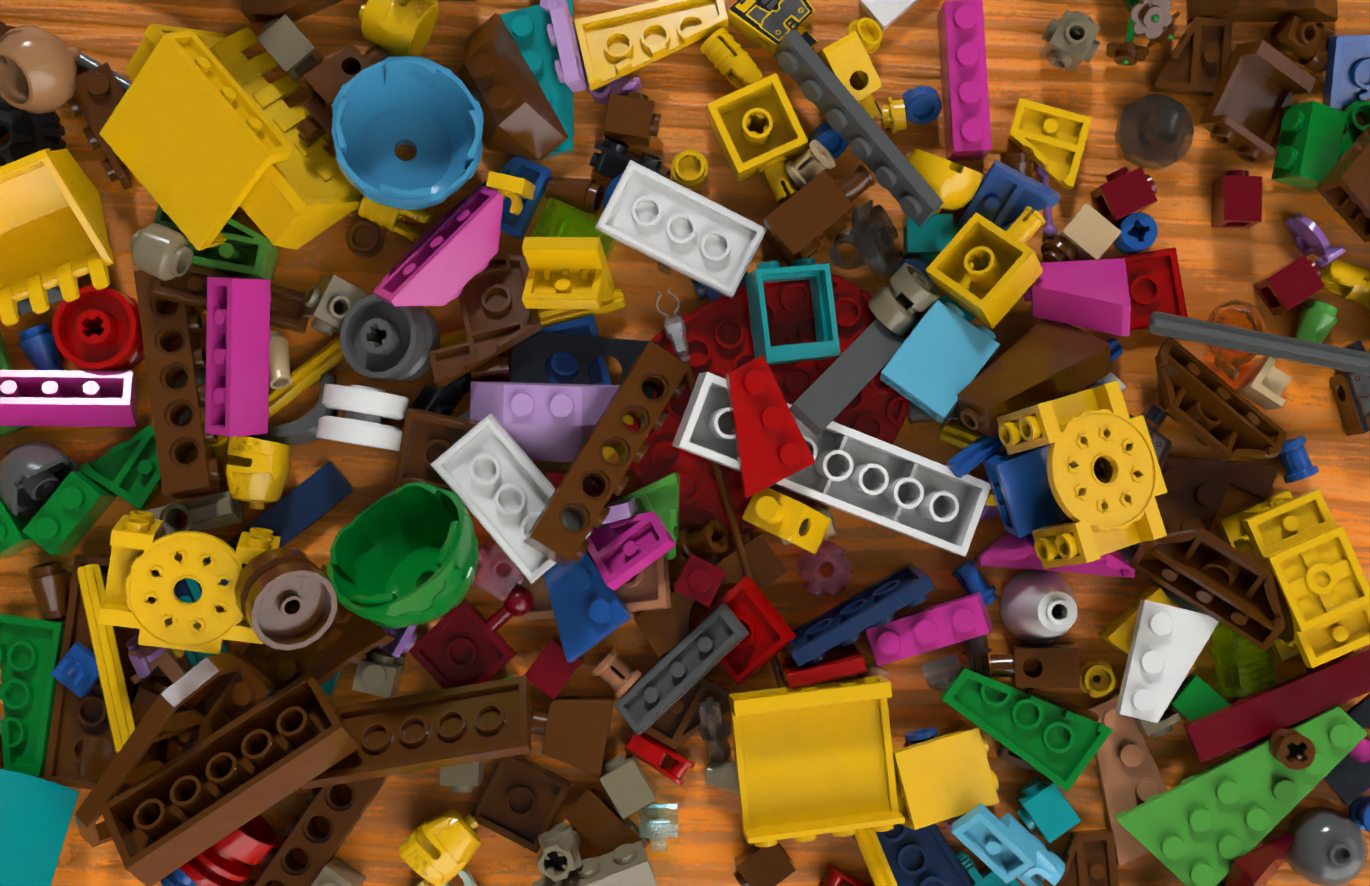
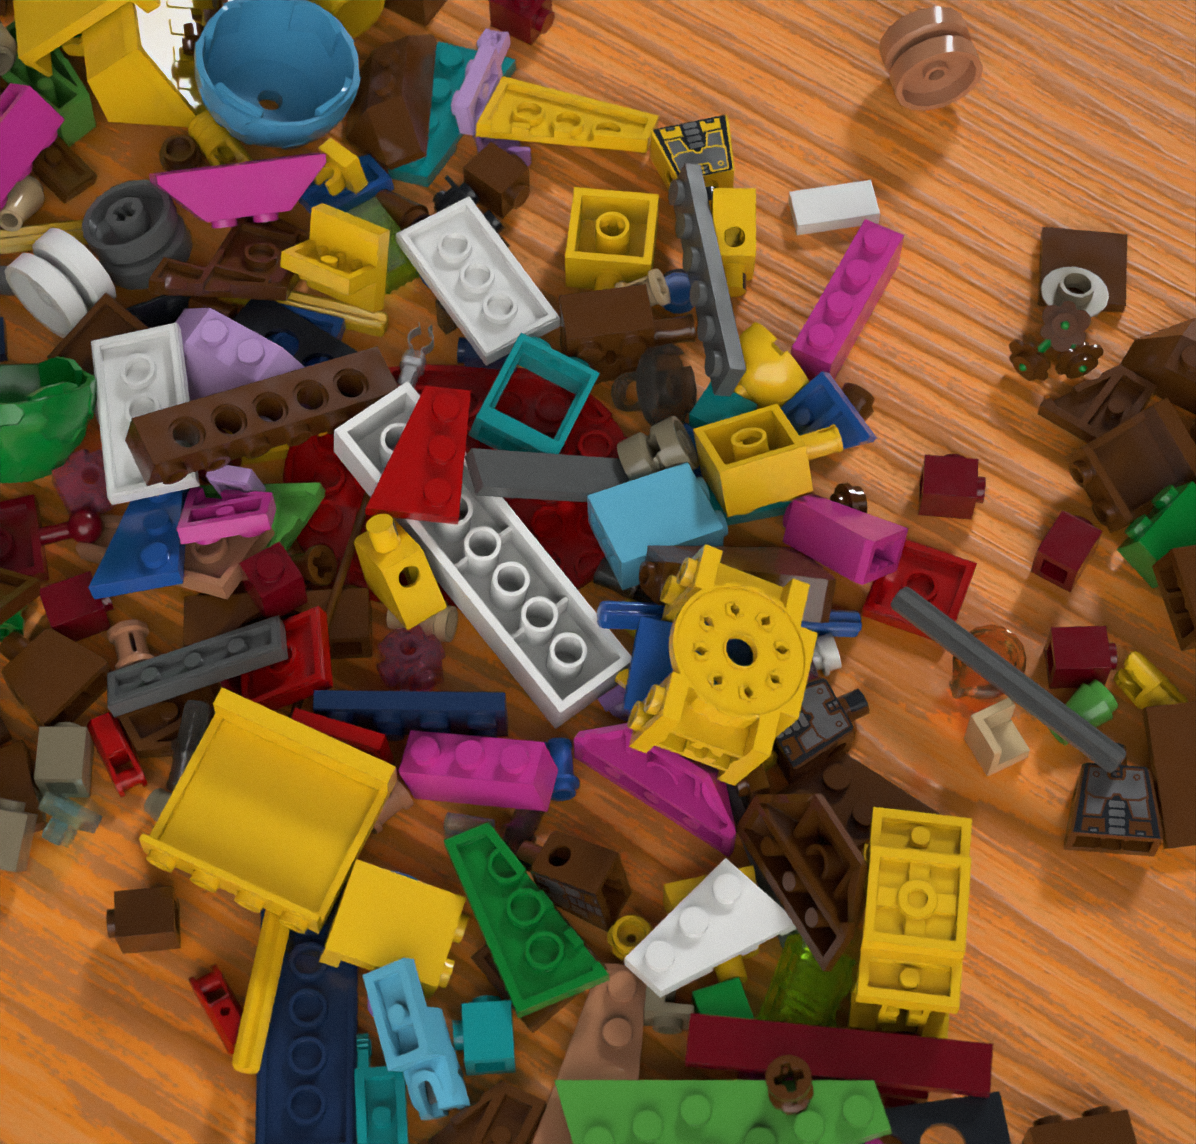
camera: 30 degrees right, 25 degrees down
(330, 302) = (100, 176): dark tan brick -> none
(689, 168) = (528, 248): yellow plate -> none
(730, 59) = (627, 172): yellow hinge -> none
(868, 31) = (773, 222): yellow plate -> none
(894, 115) = (758, 303): yellow plate -> none
(922, 104) = (791, 306): blue tile -> none
(1038, 606) = (619, 818): white cone -> none
(1049, 230) = (882, 431): medium lavender hinge -> none
(1052, 138) = (906, 400): yellow wing -> none
(1070, 40) = (975, 322): dark tan brick -> none
(1090, 233) = (891, 496): tan panel -> none
(1128, 240) = (938, 536): blue wheel -> none
(1154, 132) = (1019, 451): clear smoke tile -> none
(1212, 407) = (916, 714): reddish brown wedge -> none
(1296, 460) = (987, 830): blue bush -> none
(1311, 239) = (1127, 627): medium lavender piece -> none

